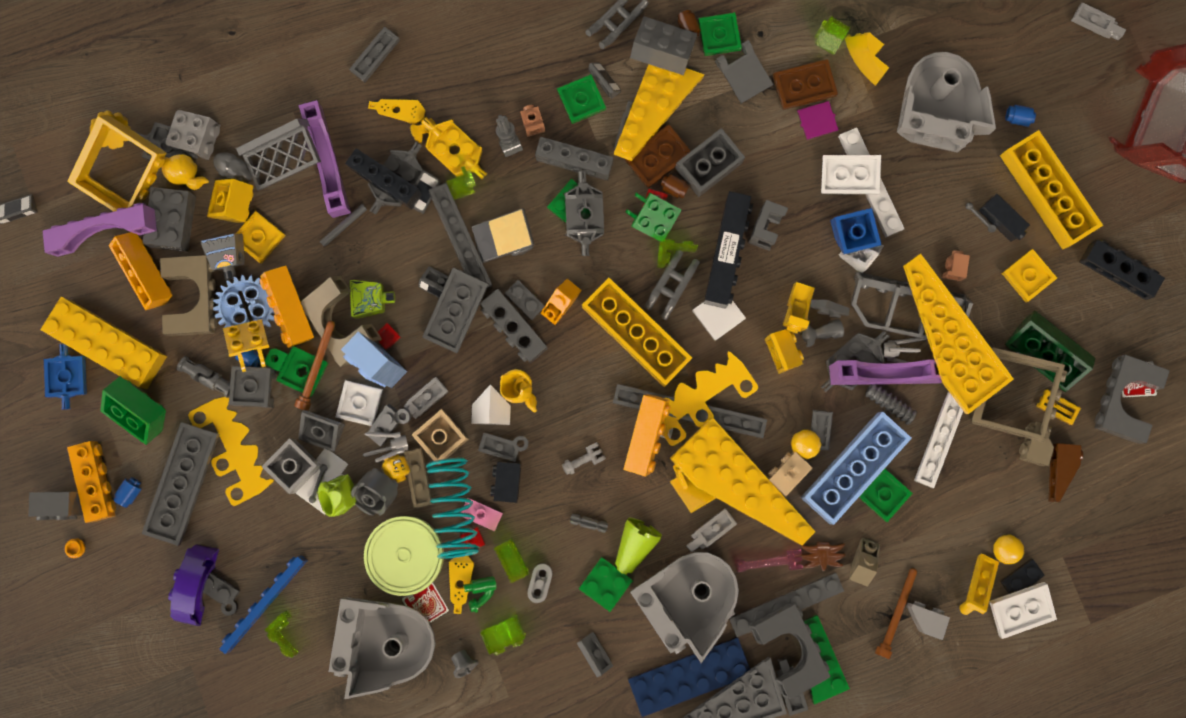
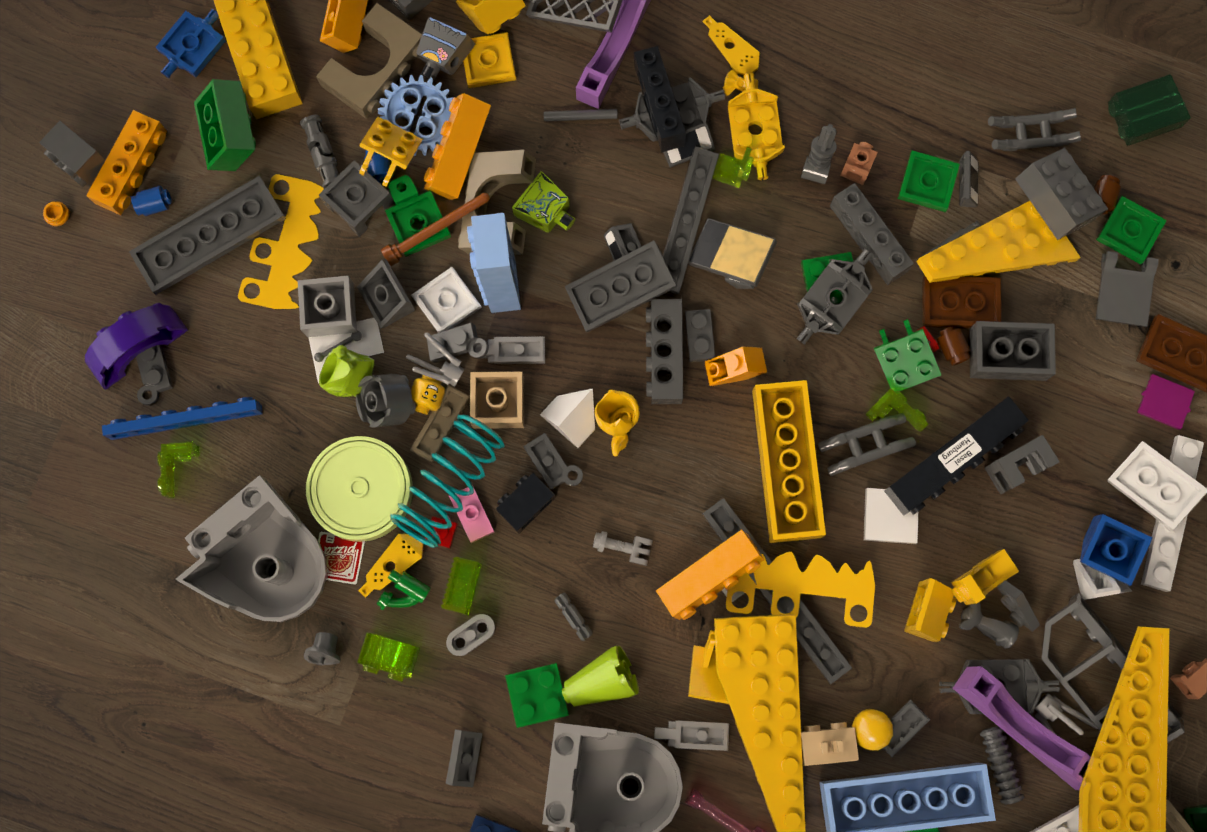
camera: 45 degrees right, 5 degrees down
(388, 336) = (531, 259): red plate -> none

